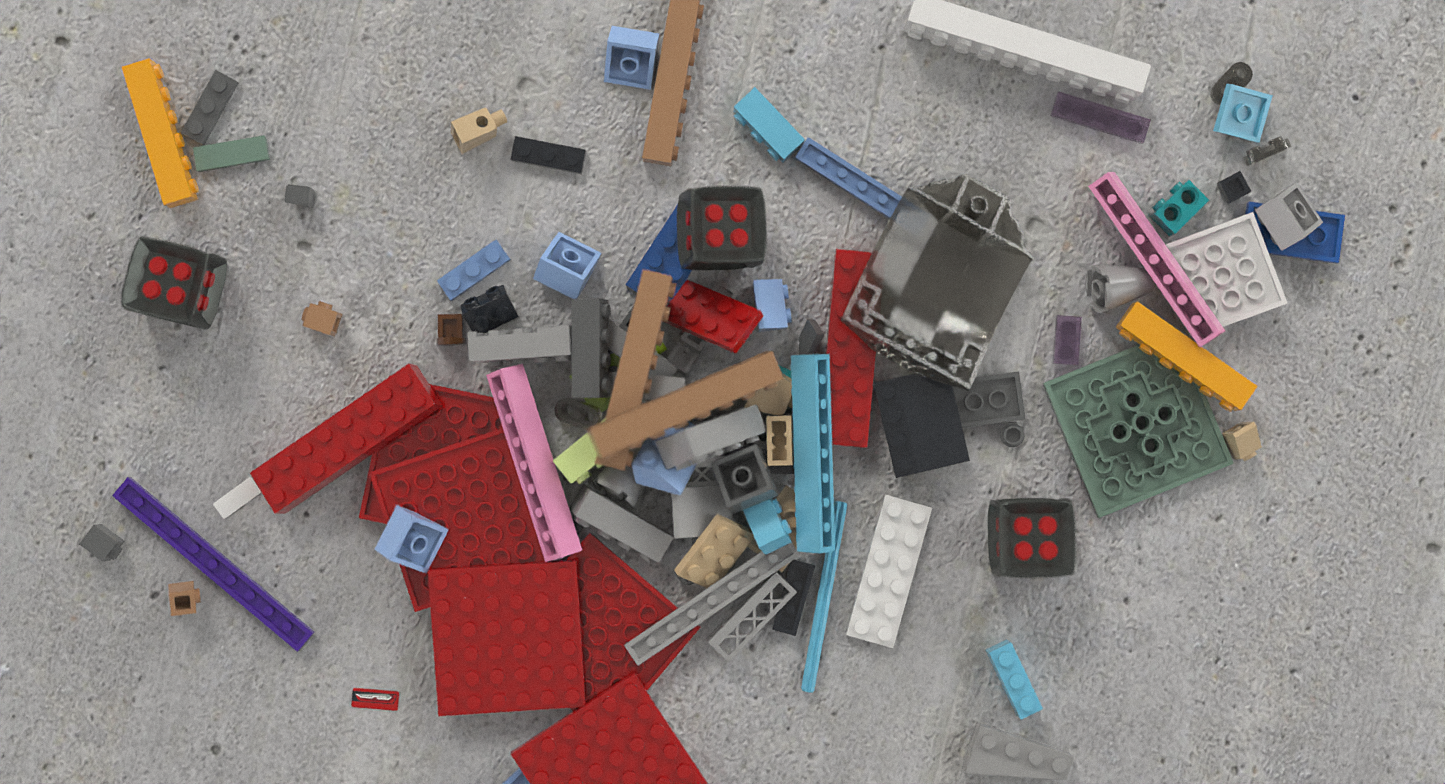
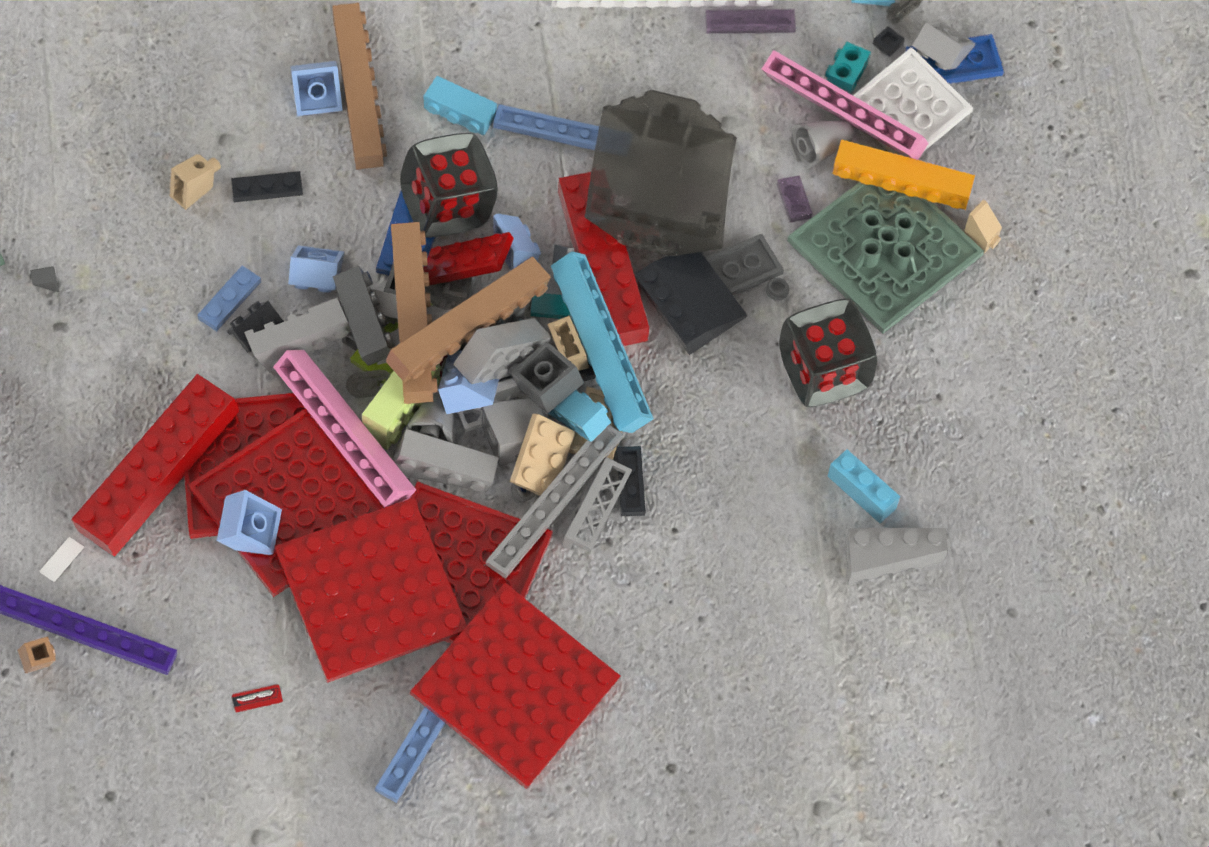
camera: 25 degrees left, 25 degrees down
(321, 318) = (97, 376): medium nougat brick -> none
(450, 330) = (224, 353): reddish brown tile -> none
(775, 399) = (546, 309): tan torso -> none
(823, 602) = (661, 483): medium azure axle -> none
(888, 571) = (711, 435): white plate -> none

